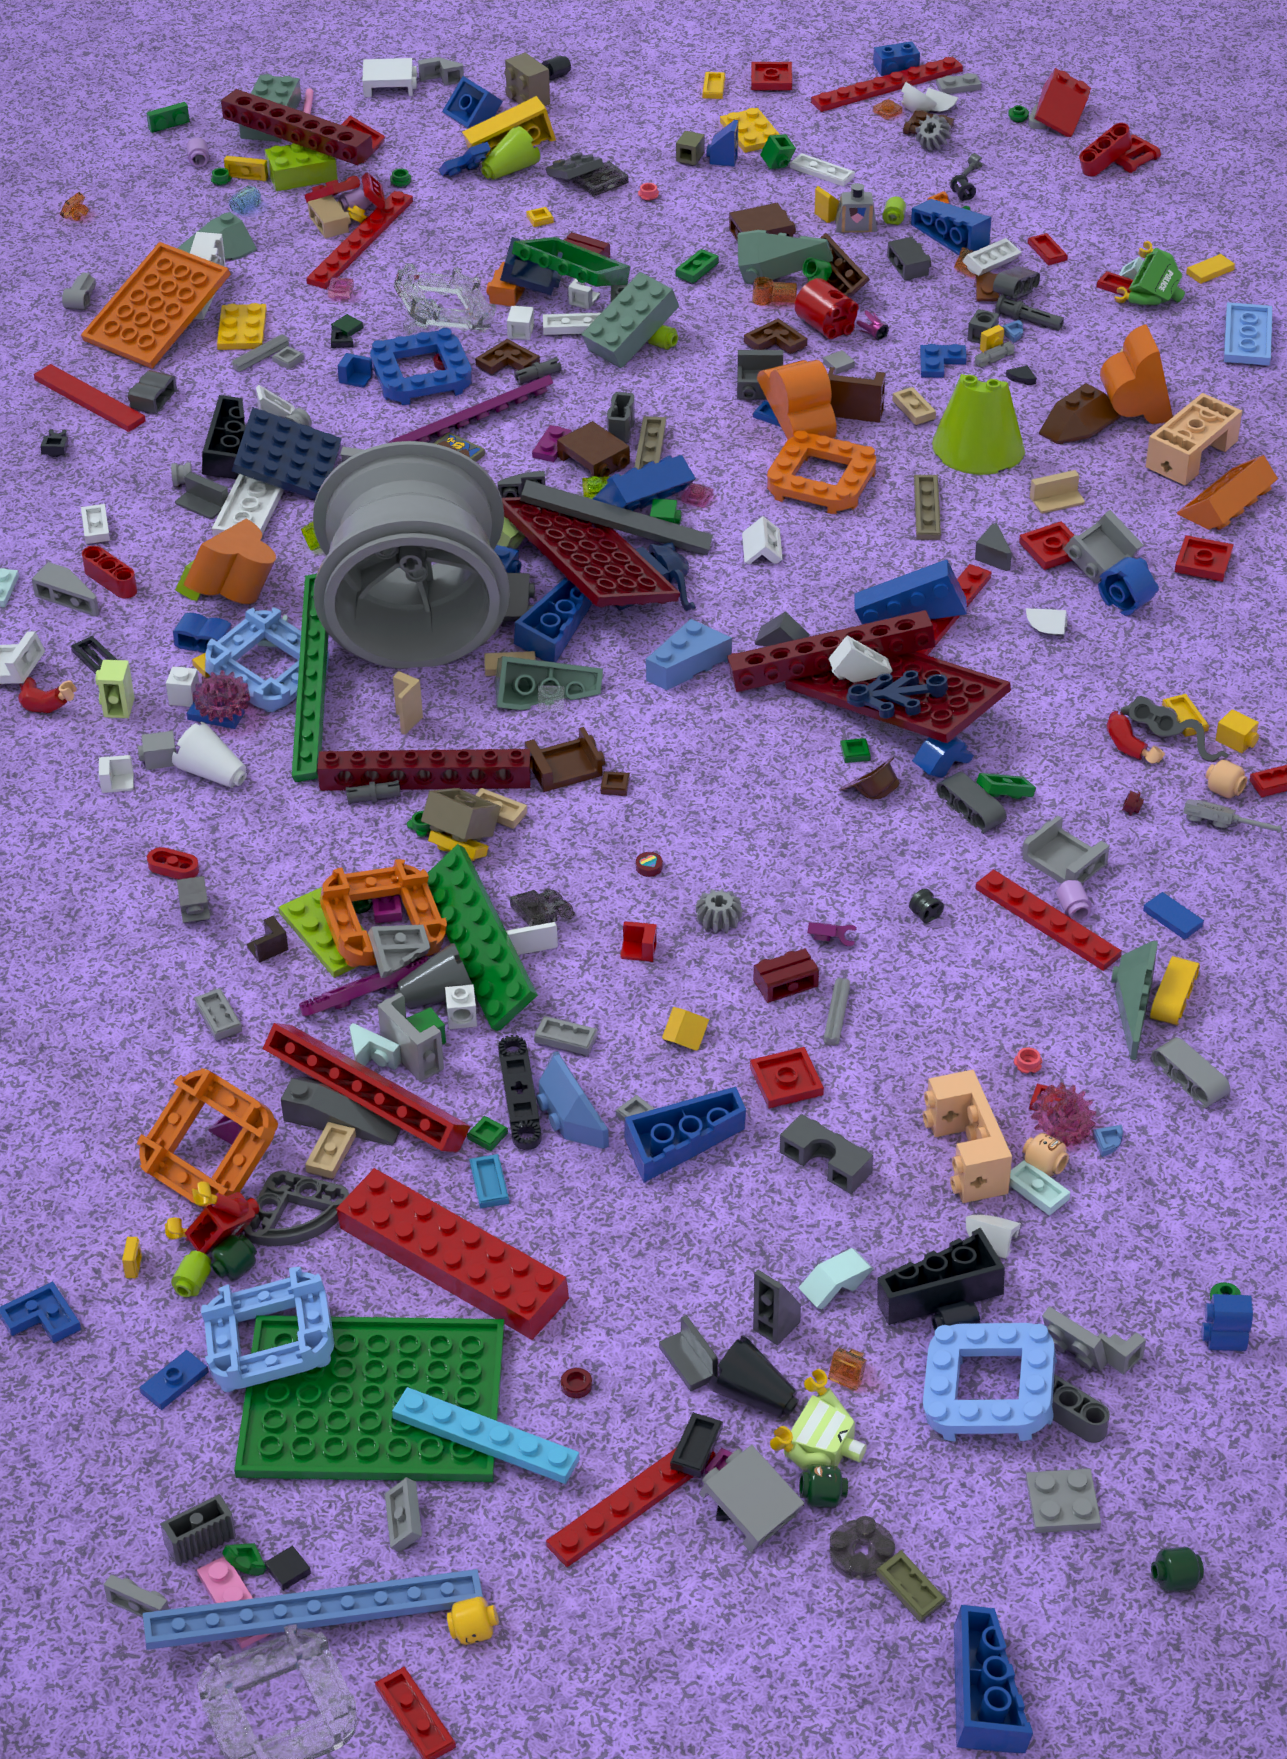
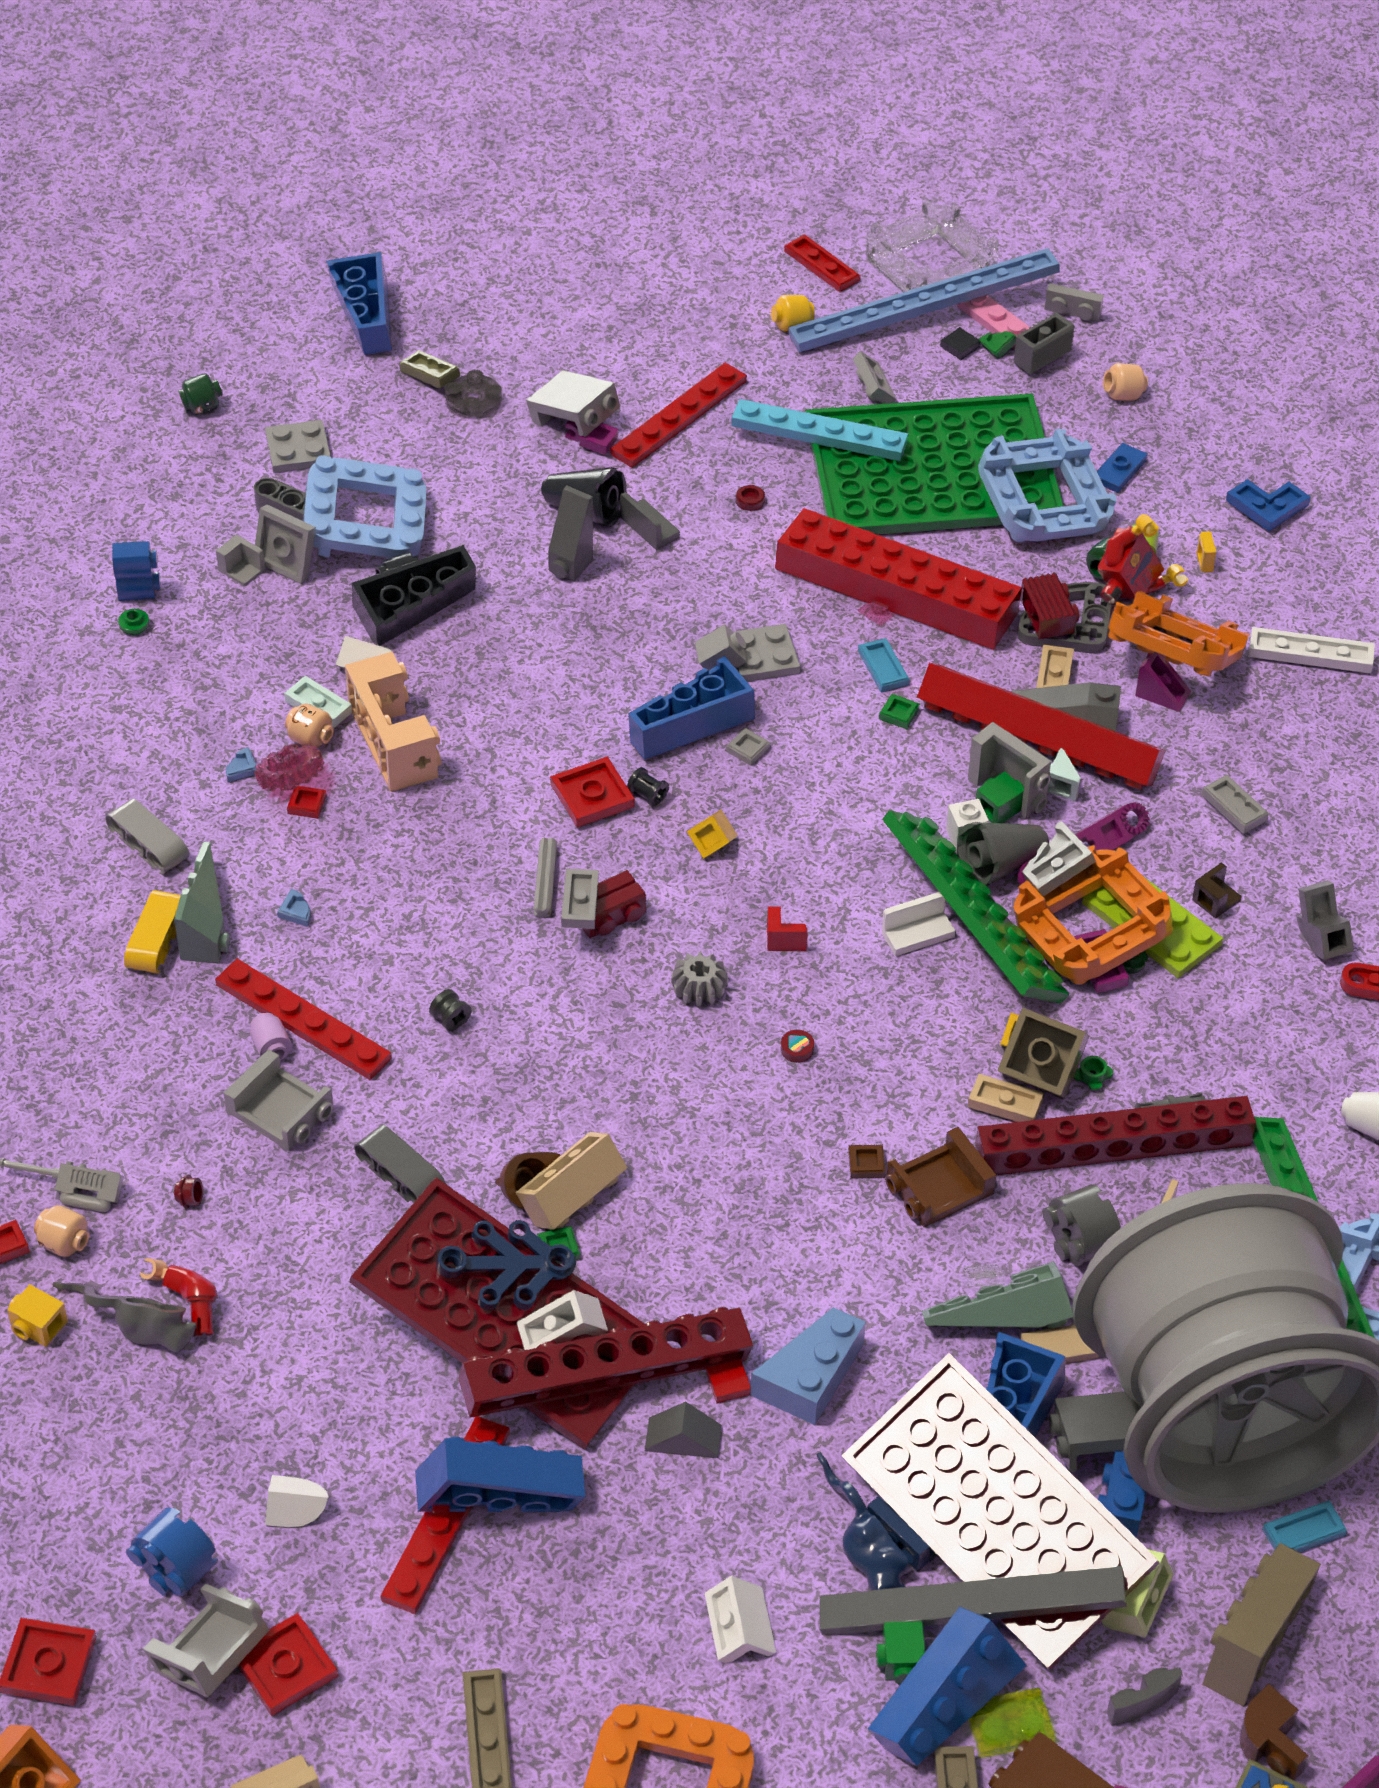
camera: 170 degrees right, 5 degrees up
(79, 1149) = (1311, 650): none -> white plate
(125, 1477) = (1125, 382): none -> light nougat head
(315, 1193) = (1049, 606): none -> dark red brick
(472, 706) = (1080, 1223): none -> dark grey brick
(521, 1107) = (884, 767): black piece -> none
(542, 907) = (918, 952): clear smoke plate -> none
(566, 1035) = (843, 816): light grey plate -> none
(569, 1106) = (816, 732): medium blue wedge -> none
(602, 1203) = (768, 653): none -> light grey plate
(645, 1187) = (719, 644): none -> light grey brick
(696, 1445) = (628, 439): black tile -> none
(697, 495) = (855, 1724): clear pink plate -> none
(735, 1074) = (647, 786): none -> black bush
(809, 1139) = (559, 723): dark grey arch -> none
(811, 949) = (580, 898): none -> light grey plate
(822, 1430) = (519, 463): torso -> none
(823, 1486) = (511, 426): dark green head -> none
(824, 931) = (569, 967): magenta plate -> none
(828, 1277) = (514, 595): light aqua slope -> none
(841, 771) = (572, 1181): none -> tan brick
(847, 1368) = (497, 521): clear orange tile -> none
(993, 549) = (379, 1637): dark grey slope -> none
(1006, 785) = (354, 1187): green plate -> none
(1028, 1060) = (324, 831): coral plate -> none
(1055, 1006) = (295, 909): none -> medium blue tile
(1173, 915) = (149, 1038): blue tile -> none
(1185, 710) = (105, 1354): yellow tile -> none

